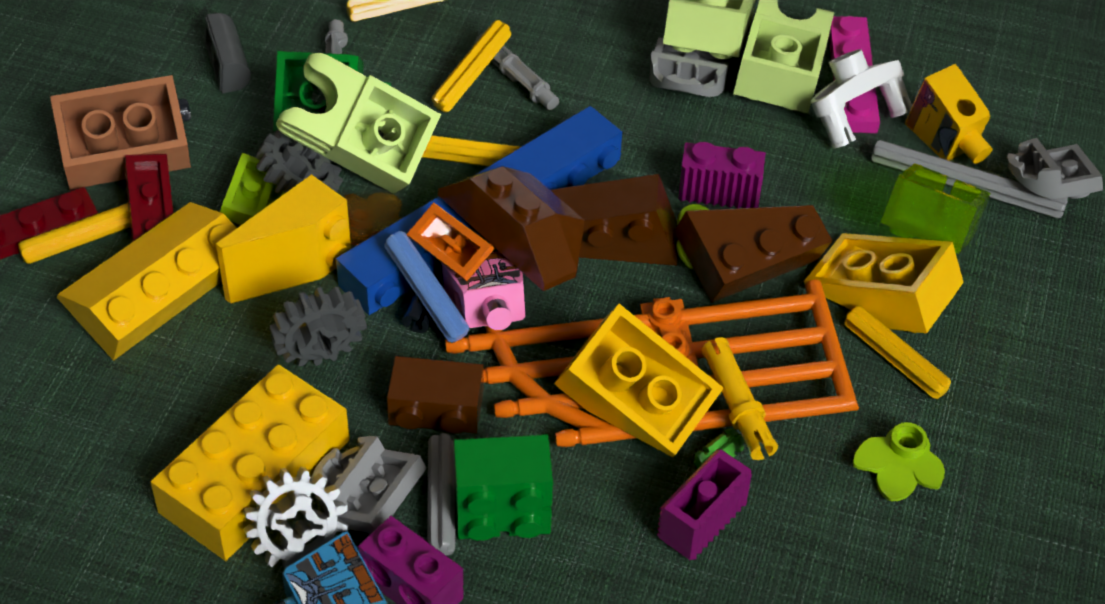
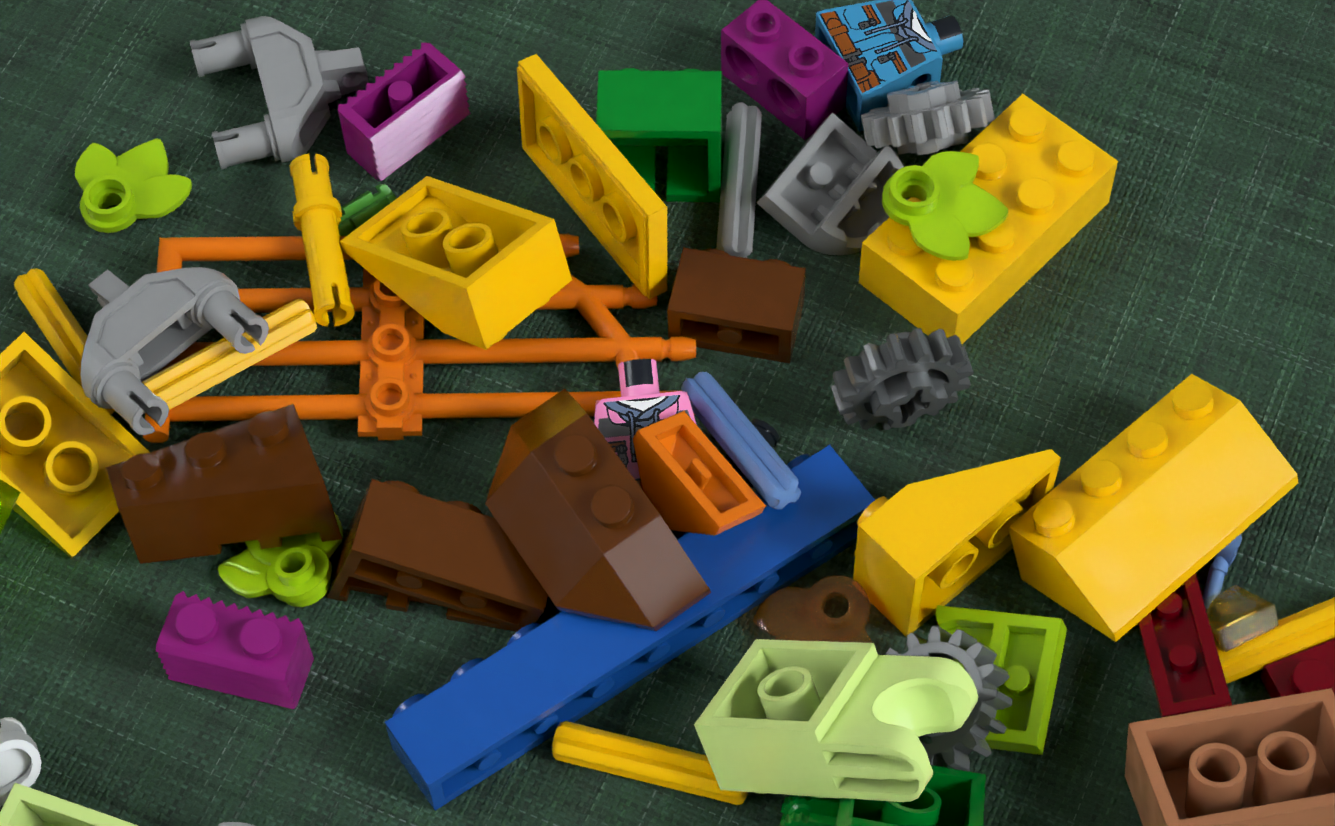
camera: 170 degrees left, 10 degrees up
(111, 230) = (1239, 617): none -> clear yellow tile
(282, 417) = (949, 204): none -> lime plate
(572, 463) = (593, 177): none -> yellow tile
(778, 316) = (223, 361): none -> yellow axle
(804, 543) = (294, 83): none -> light grey connector
(836, 318) = (152, 325): none -> light grey connector

